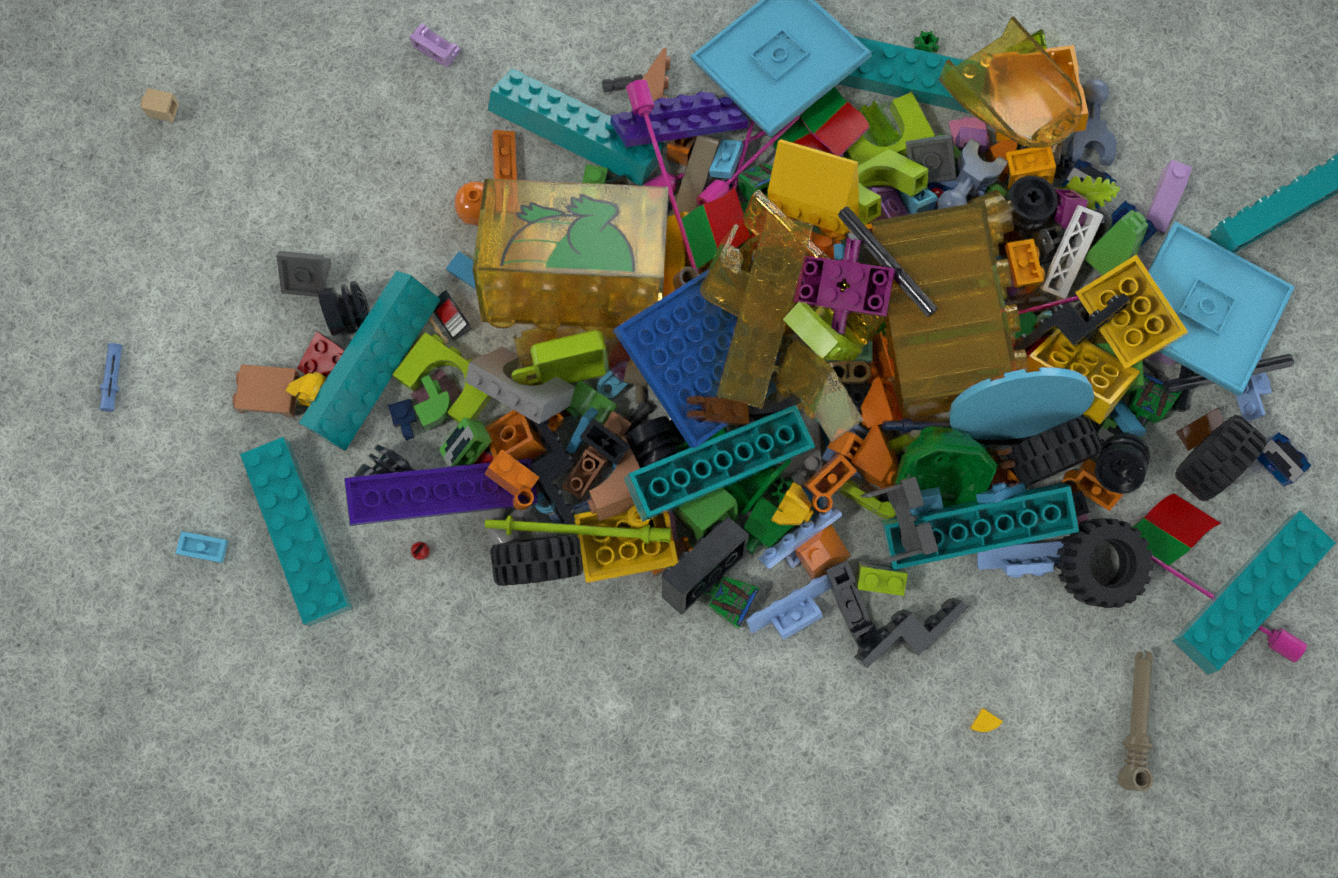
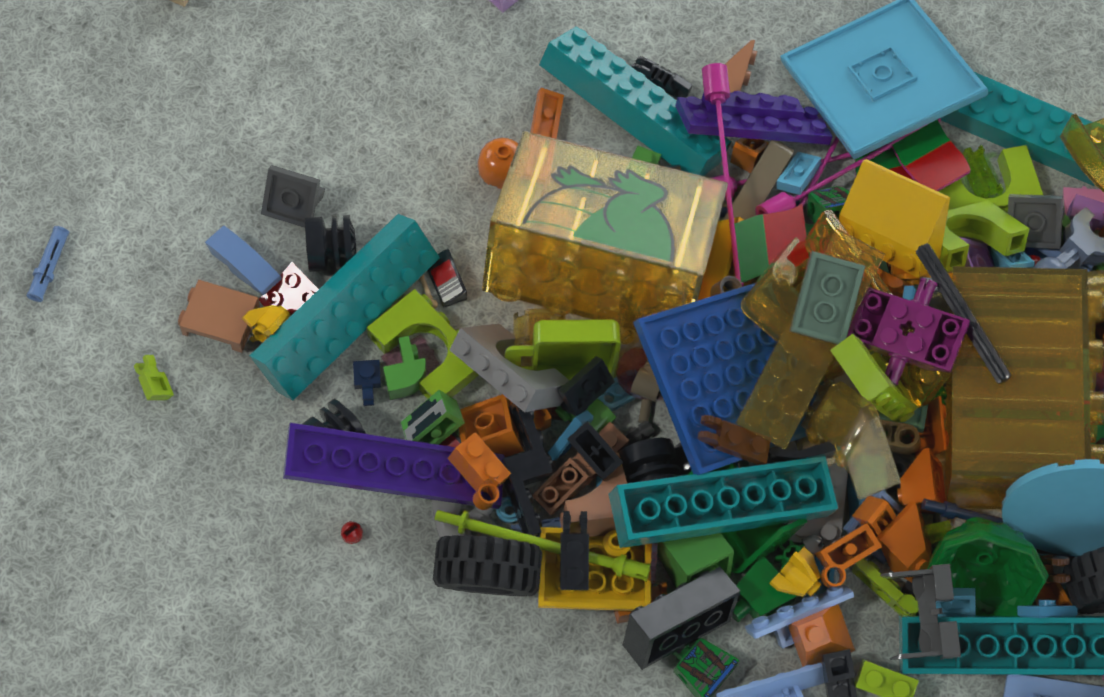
camera: 10 degrees right, 10 degrees down
(202, 547) = (104, 472): medium azure plate -> none
(225, 461) = (153, 382): none -> lime plate
(275, 338) = (242, 260): none -> medium blue slope
(296, 531) = (216, 479): teal brick -> none
(461, 267) = (473, 232): dark azure tile -> none
(586, 388) = (586, 387): none -> black bracket
(594, 98) = (671, 83): none -> black hinge
(606, 535) = (574, 554): none -> black hinge
(619, 83) = (692, 68): dark grey axle -> none
(771, 274) = (827, 298): none -> sand green tile
(928, 38) = (1054, 95): green gear -> none

